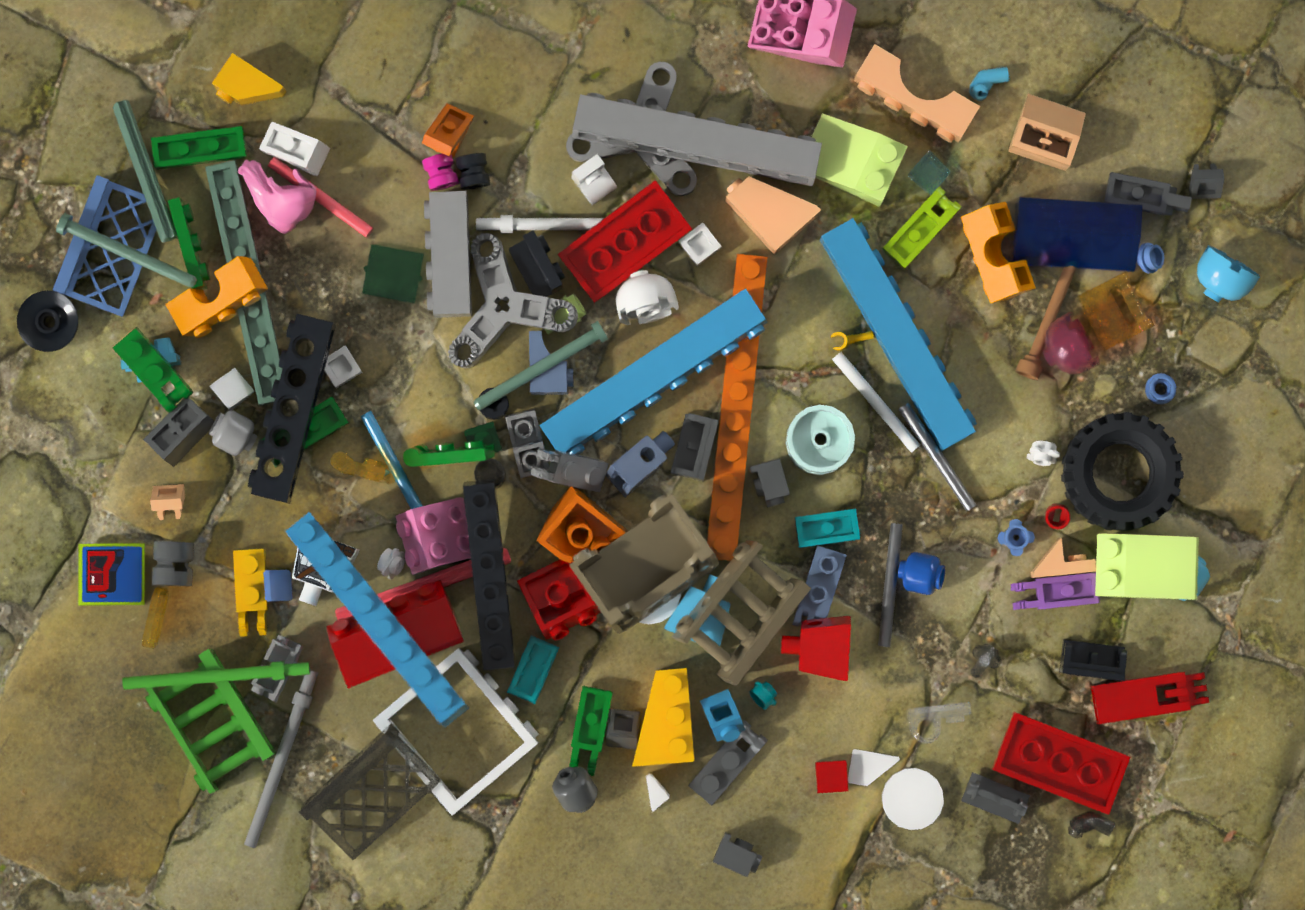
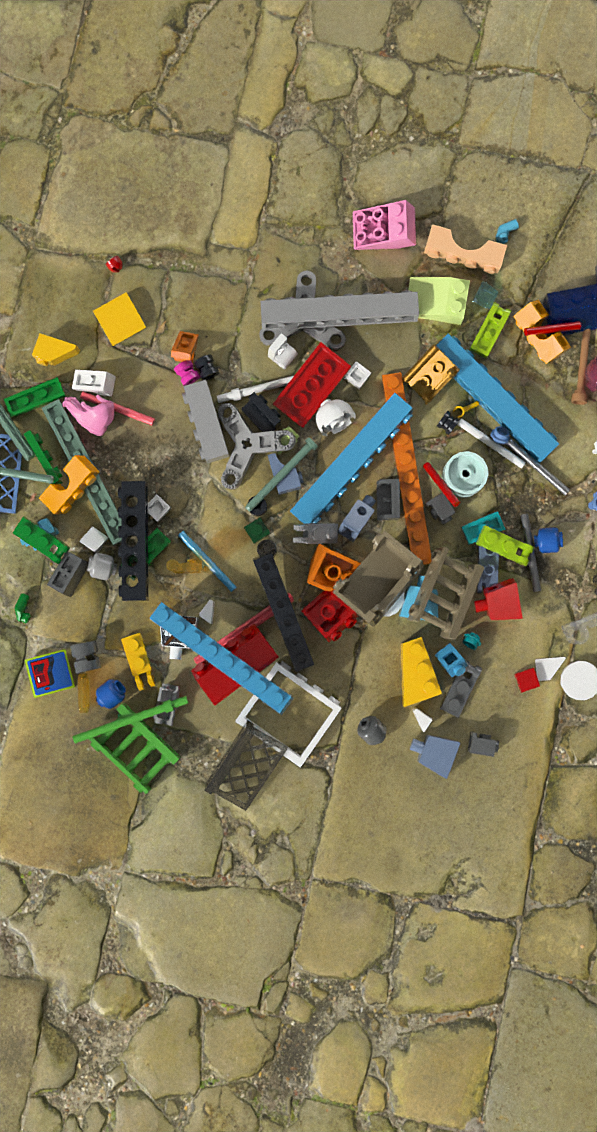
camera: 10 degrees left, 0 degrees up
(92, 463) = (19, 608): none -> green arm
(168, 498) = (72, 617): light nougat tile -> none
(195, 629) = (110, 693): none -> blue head
(277, 585) = (154, 653): medium blue slope -> none
(301, 701) = (187, 720): light grey bar -> none
(359, 60) = (119, 319): none -> yellow slope
(375, 544) = (208, 611): none -> white slope
(391, 562) = (220, 620): white plate -> none
(393, 273) = (174, 443): clear green piece -> none
(434, 535) = (243, 596): bright pink bracket -> none
(446, 453) = (236, 543): green plate -> none
(526, 441) = (283, 524): light grey slope -> none
(533, 669) = (325, 663): teal plate -> none
(590, 725) = (370, 688): green hinge -> none
(622, 728) = (390, 684): dark grey slope -> none
(662, 850) = (436, 753): none -> sand blue torso
(770, 211) = (395, 343): light nougat slope -> none
(780, 445) = (441, 484): none -> red bar
(811, 272) = (431, 373): none -> pearl gold piece
(817, 353) = (448, 422): none -> black wheel
(851, 563) = (504, 545): none -> lime plate
(892, 394) = (500, 435): none -> medium blue plate
(1013, 252) = (552, 328): none -> red bar
(1047, 132) = (552, 252): light nougat slope -> none

